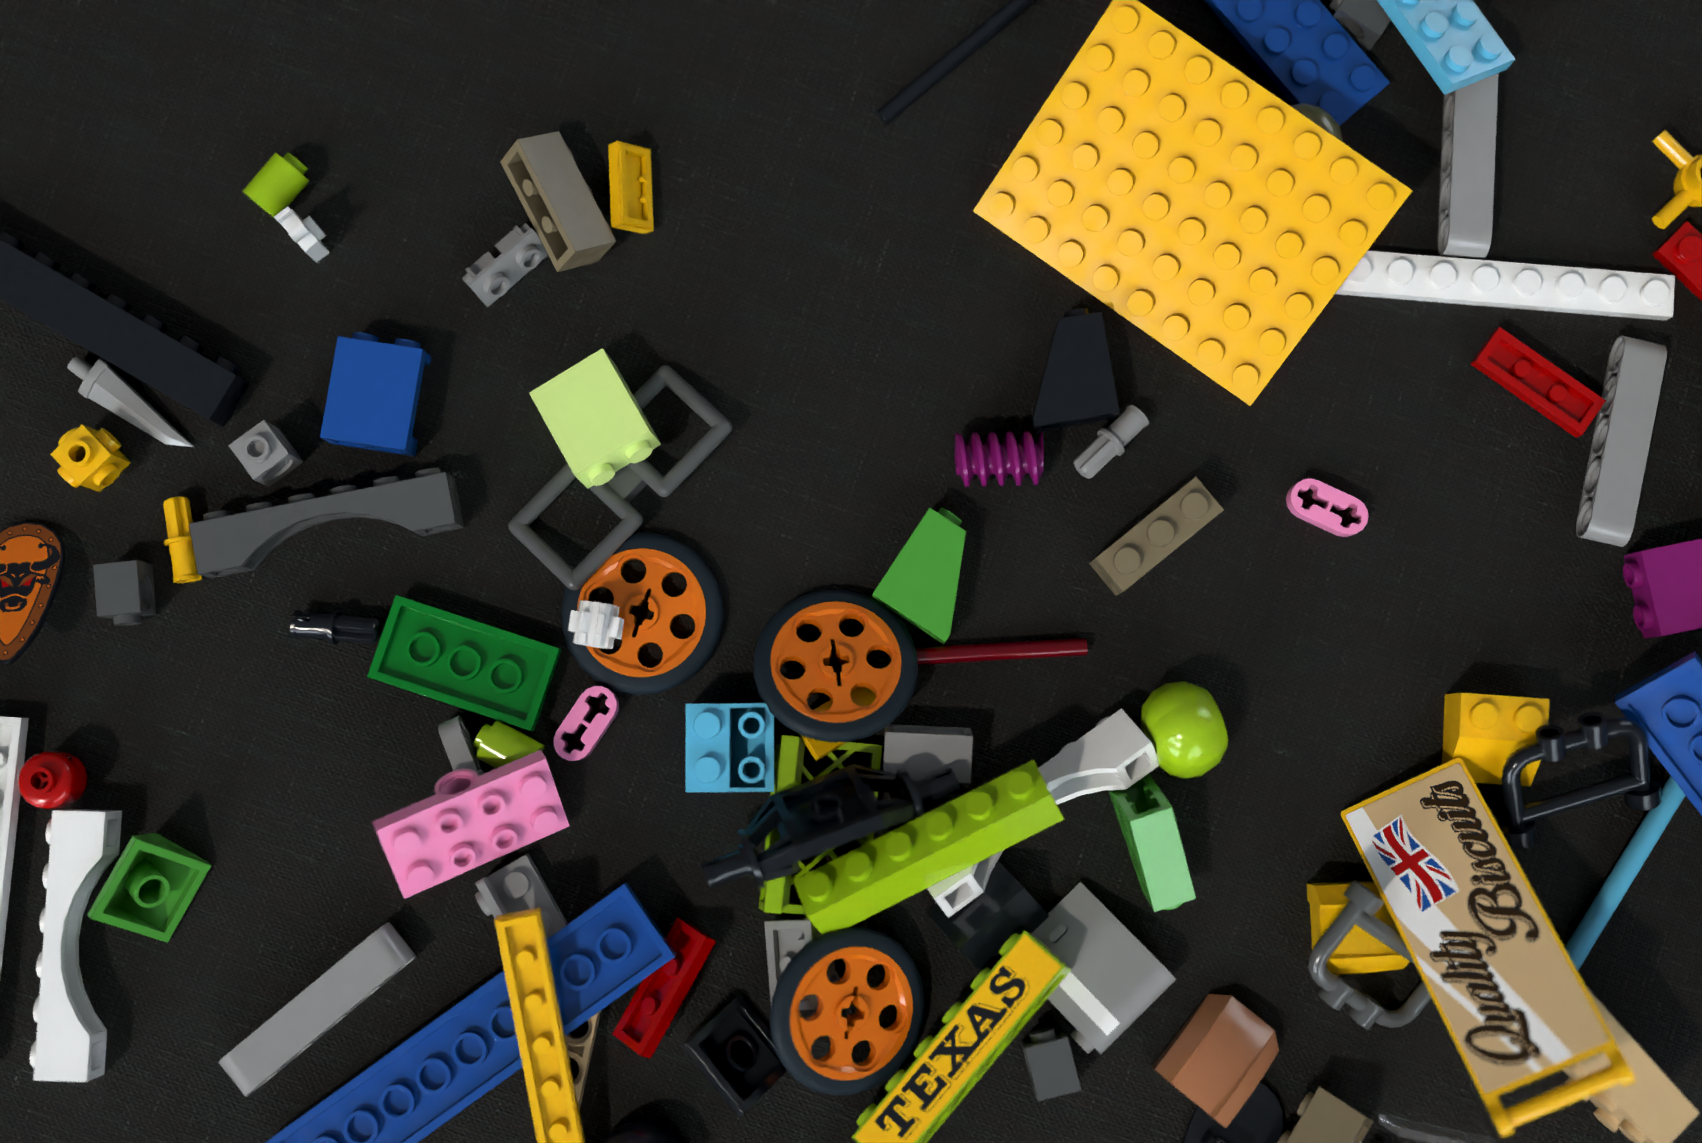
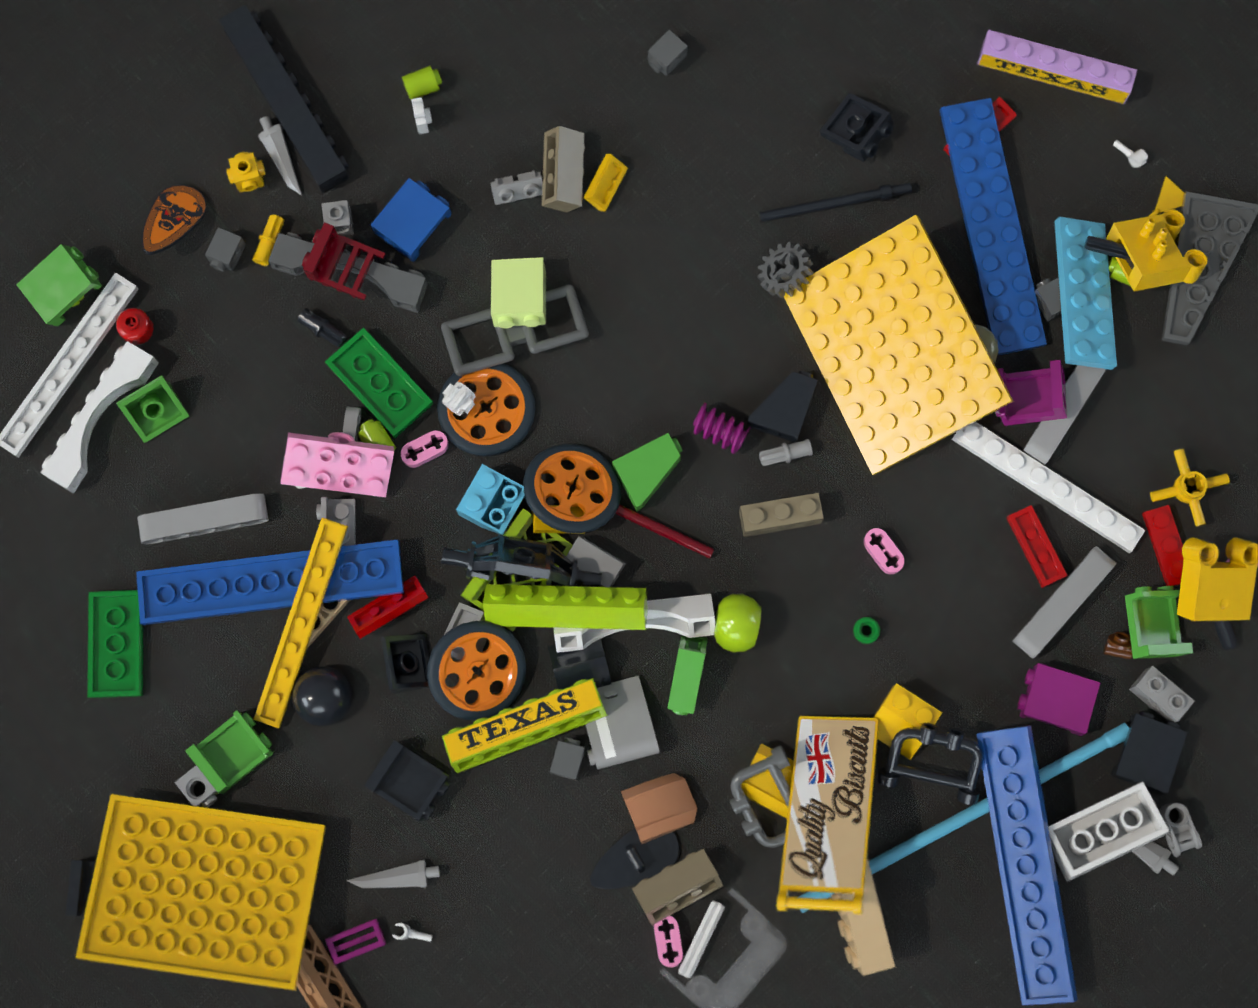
camera: 30 degrees right, 5 degrees down
(278, 519) = (325, 255): none -> dark red plate
(963, 176) = (785, 270): none -> dark grey gear
(1379, 633) = (872, 624): none -> green plate
(1430, 159) = (1035, 395): none -> magenta panel

